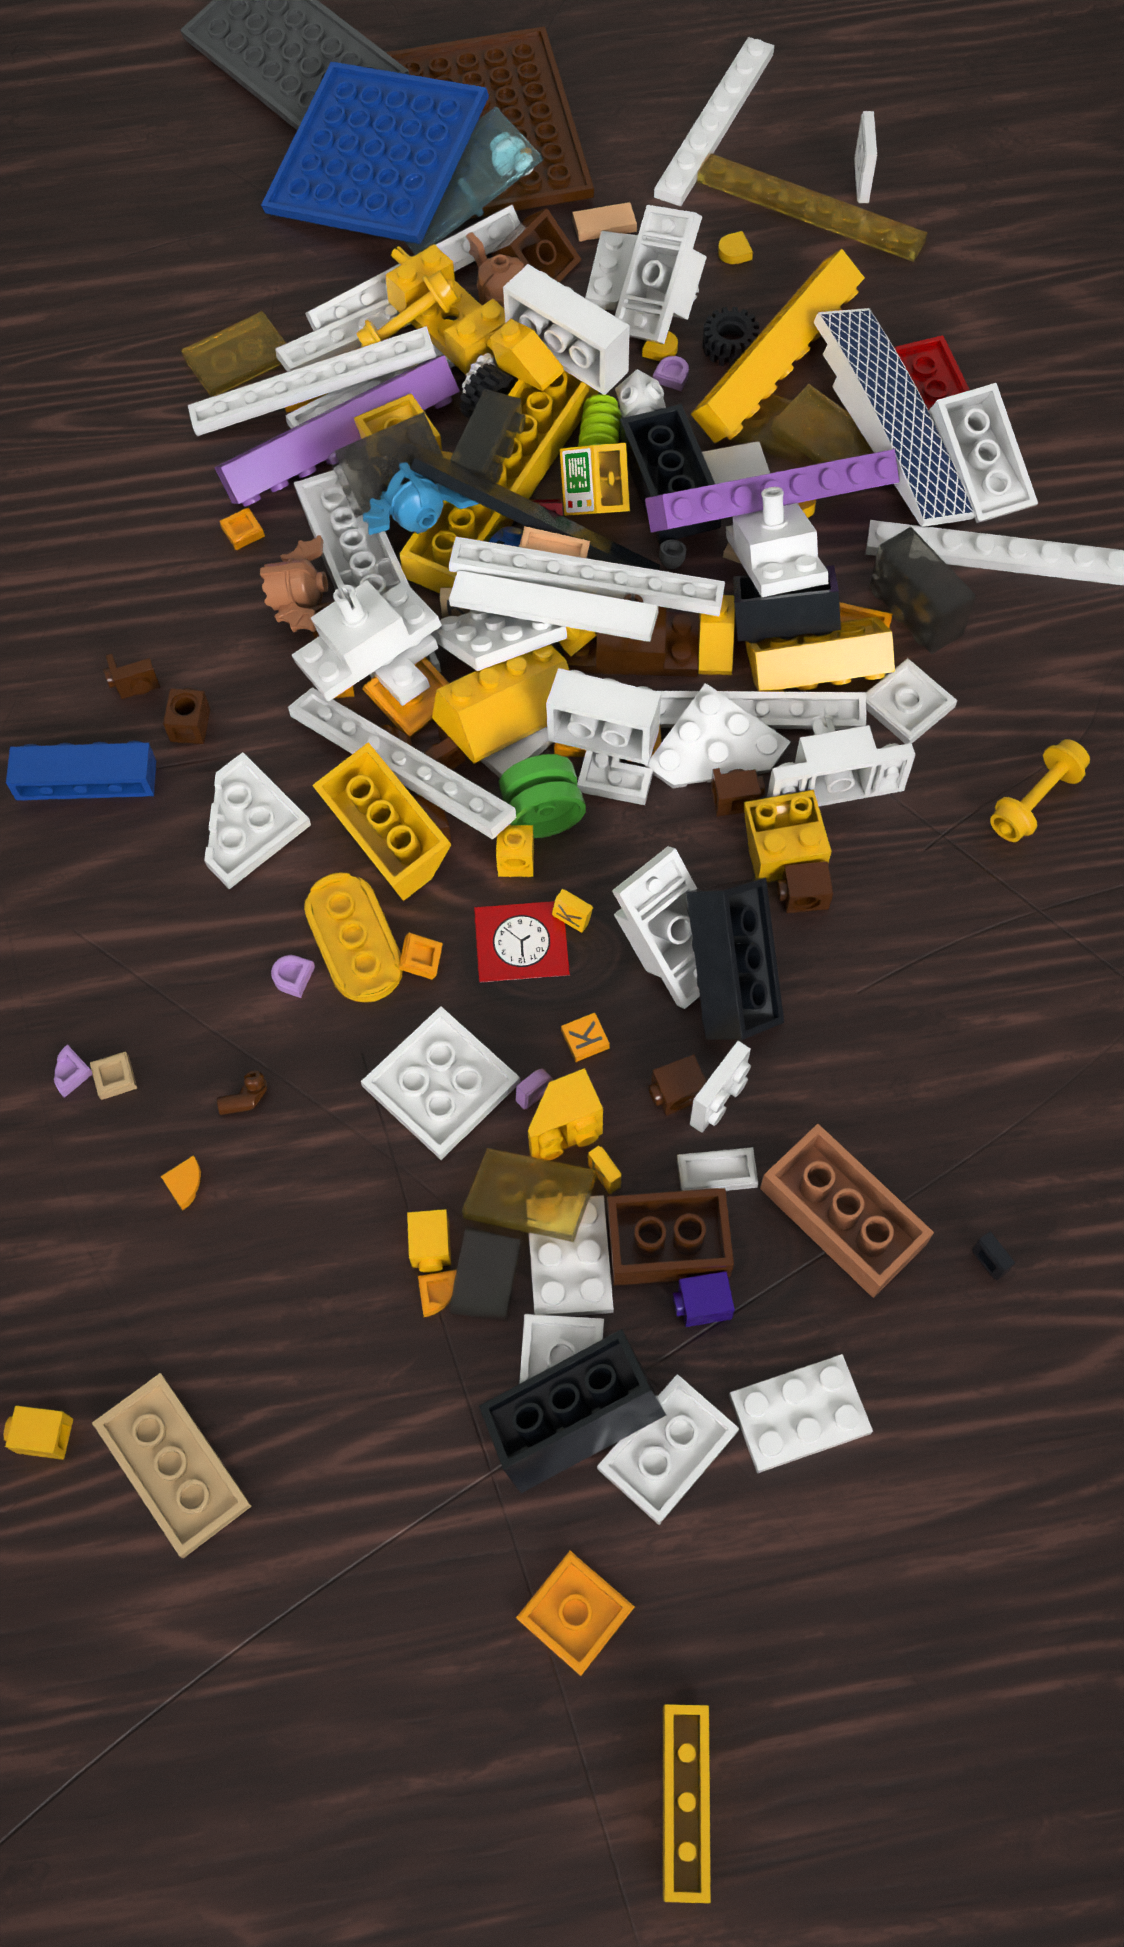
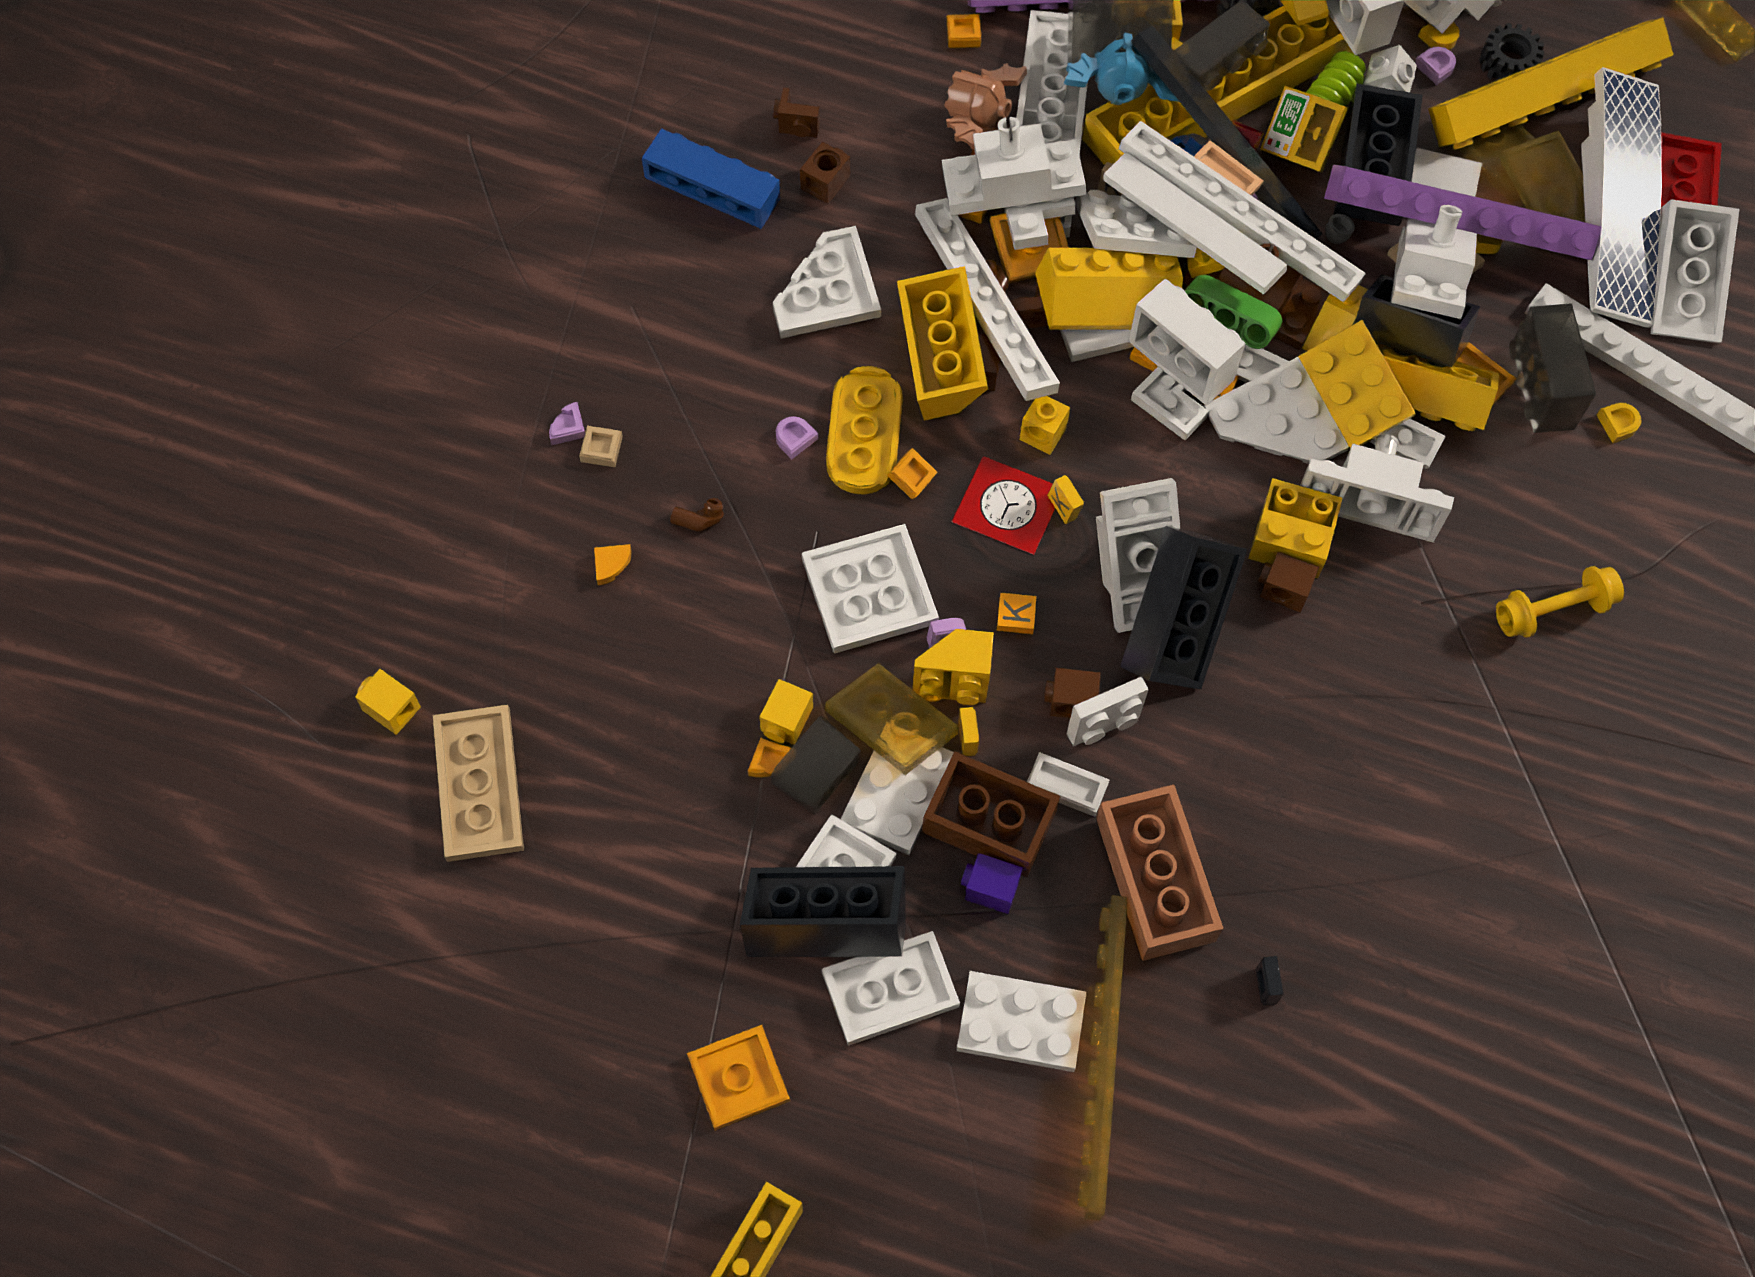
camera: 25 degrees right, 0 degrees up
(543, 794) = (1095, 385): bright green wheel -> none
(638, 663) = (1247, 310): none -> bright green beam
(734, 789) = (1274, 463): reddish brown brick -> none
(773, 684) = (1357, 385): none -> yellow brick
(898, 1419) = (1102, 1071): none -> clear yellow plate
(908, 702) = (1484, 465): white tile -> none
(996, 609) = (1619, 421): none -> yellow tile

